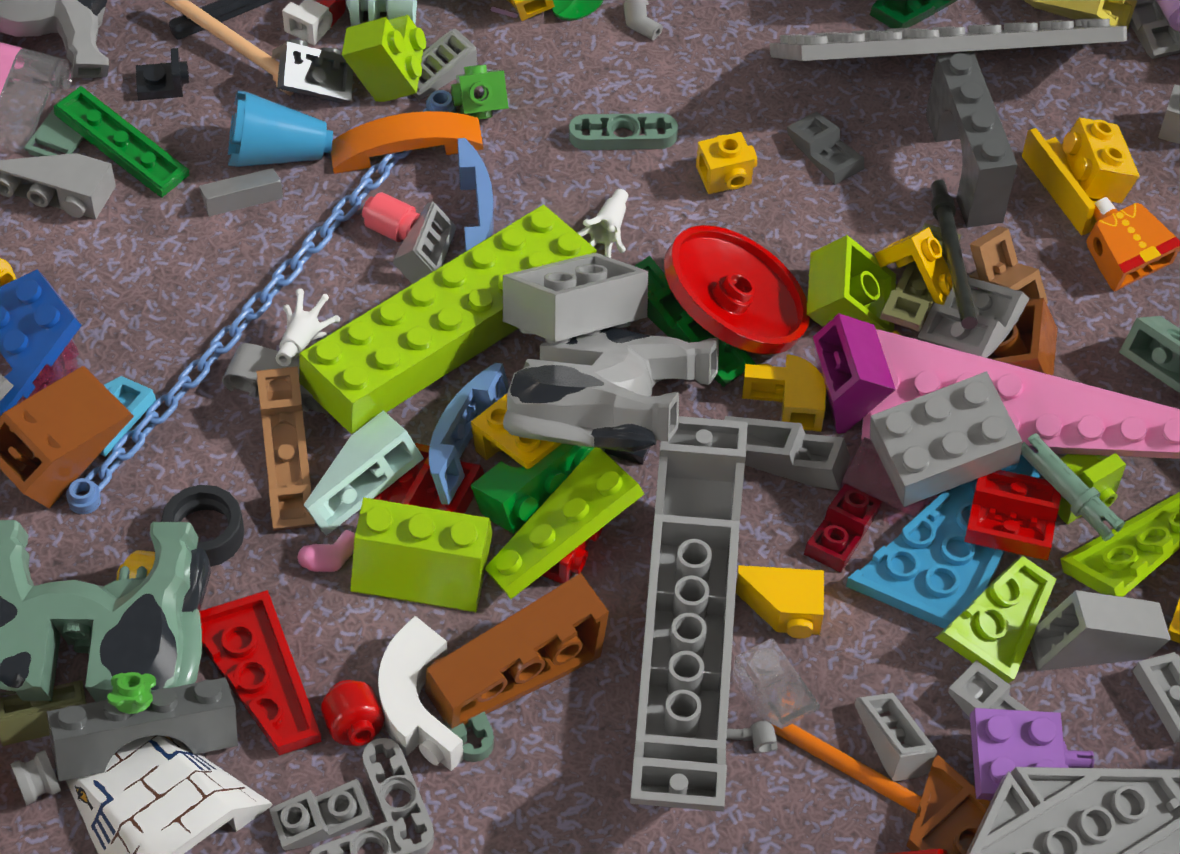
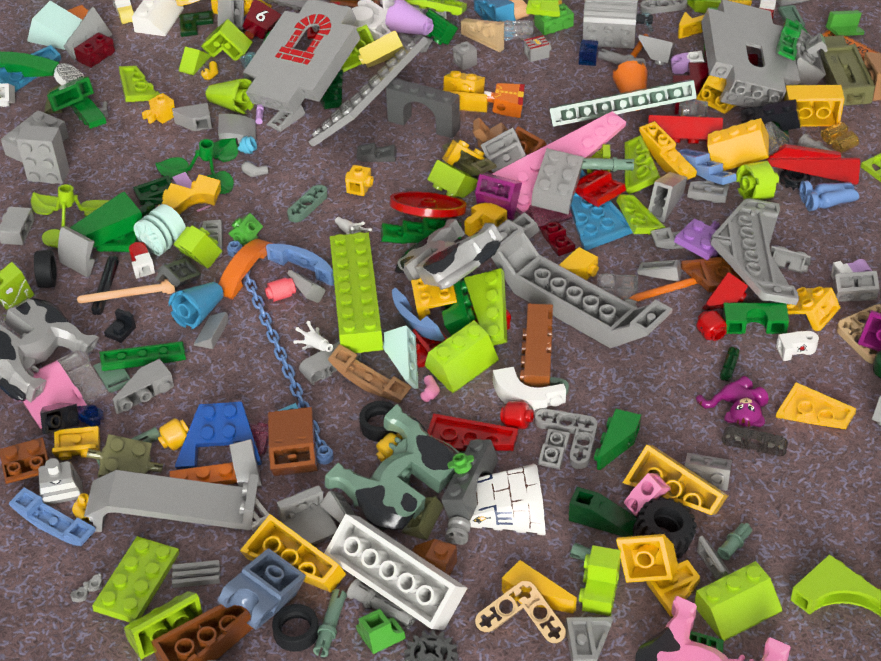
camera: 50 degrees left, 10 degrees down
(575, 297) = (390, 246): light grey brick -> none
(944, 211) = (440, 136): pearl dark grey bar -> none

